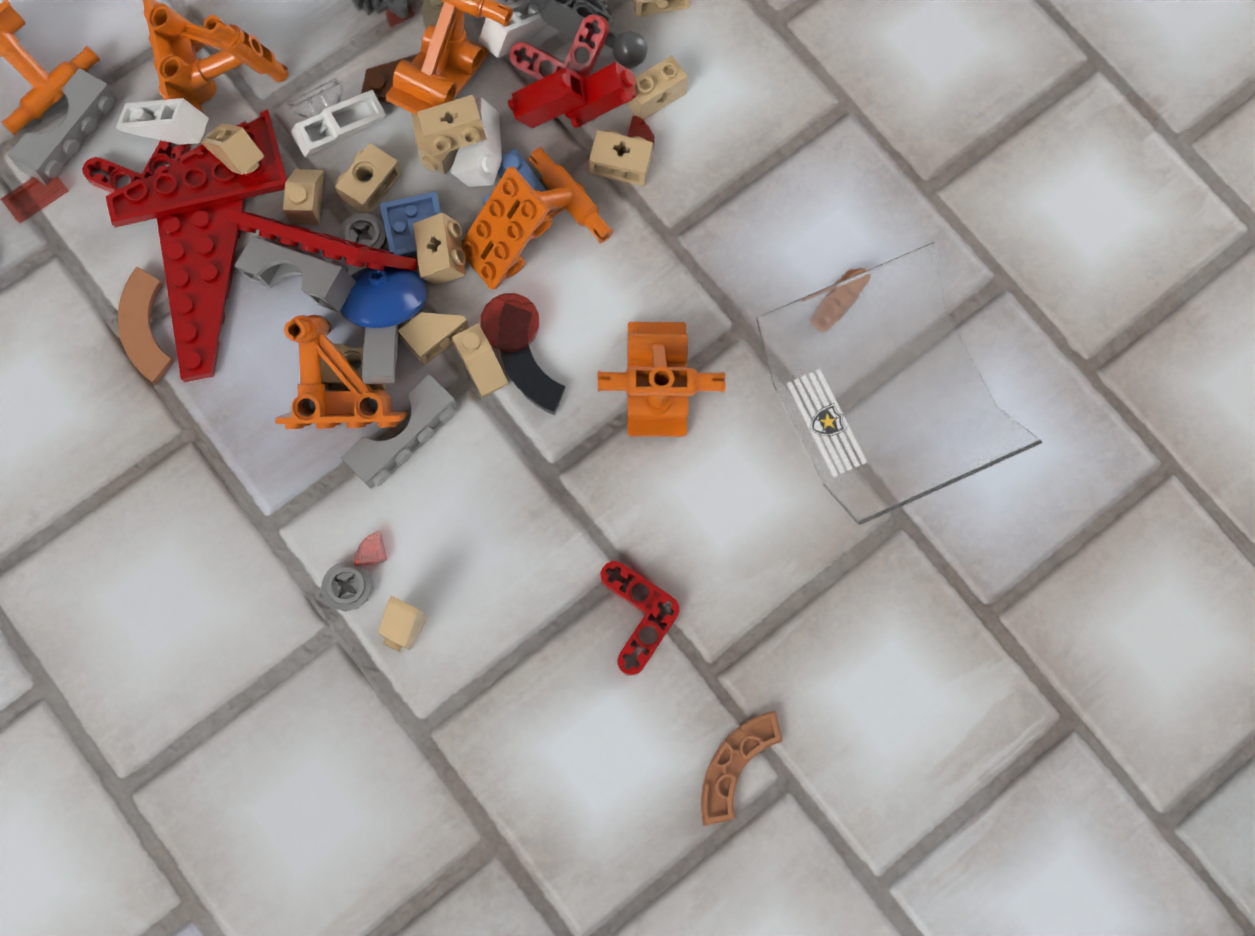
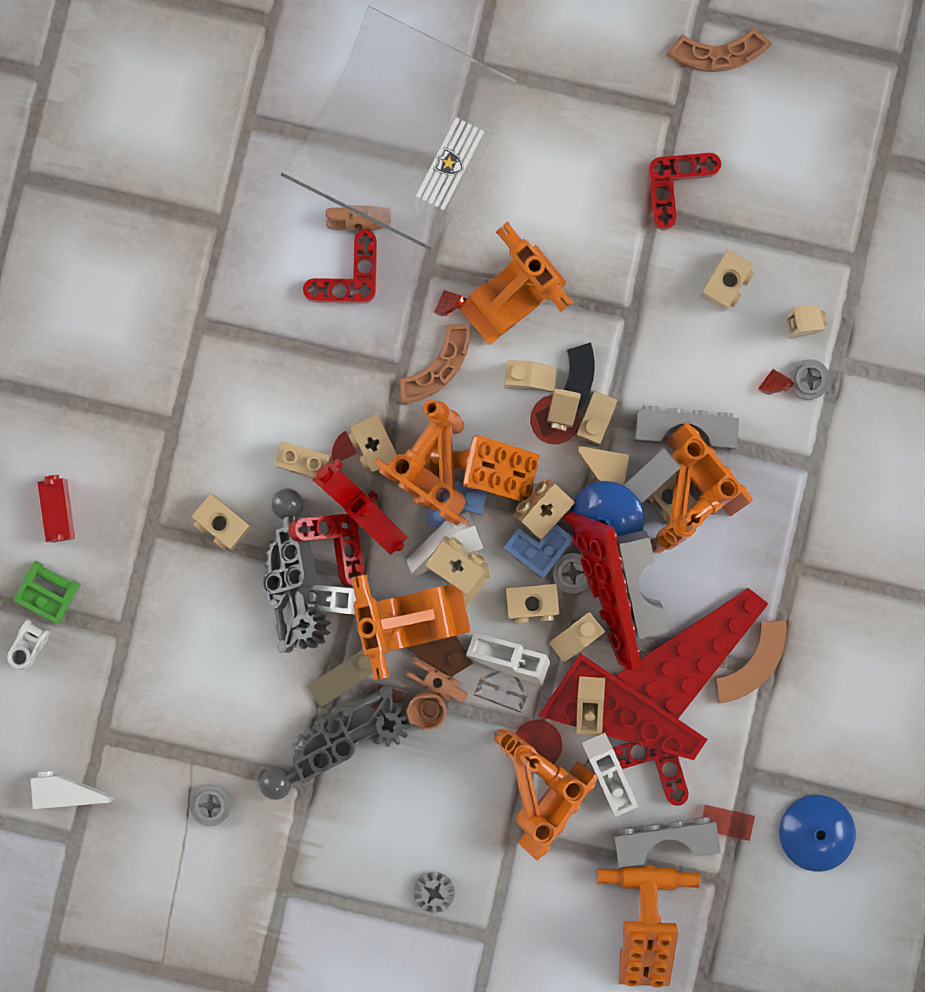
camera: 125 degrees left, 10 degrees up
(246, 94) = (542, 737): none -> clear red tile
(356, 26) = (426, 710): none -> nougat hair
(372, 53) = (449, 684): none -> nougat hinge
(499, 565) = (733, 266): none -> tan brick
(511, 325) = (563, 409): none -> tan slope
(565, 146) = (418, 479): none -> orange plate
(569, 332) = (530, 376): none -> tan slope
(640, 270) = (442, 369): none -> nougat tile
(695, 317) = (448, 303): none -> clear red tile
(780, 257) = (358, 277): none -> red beam

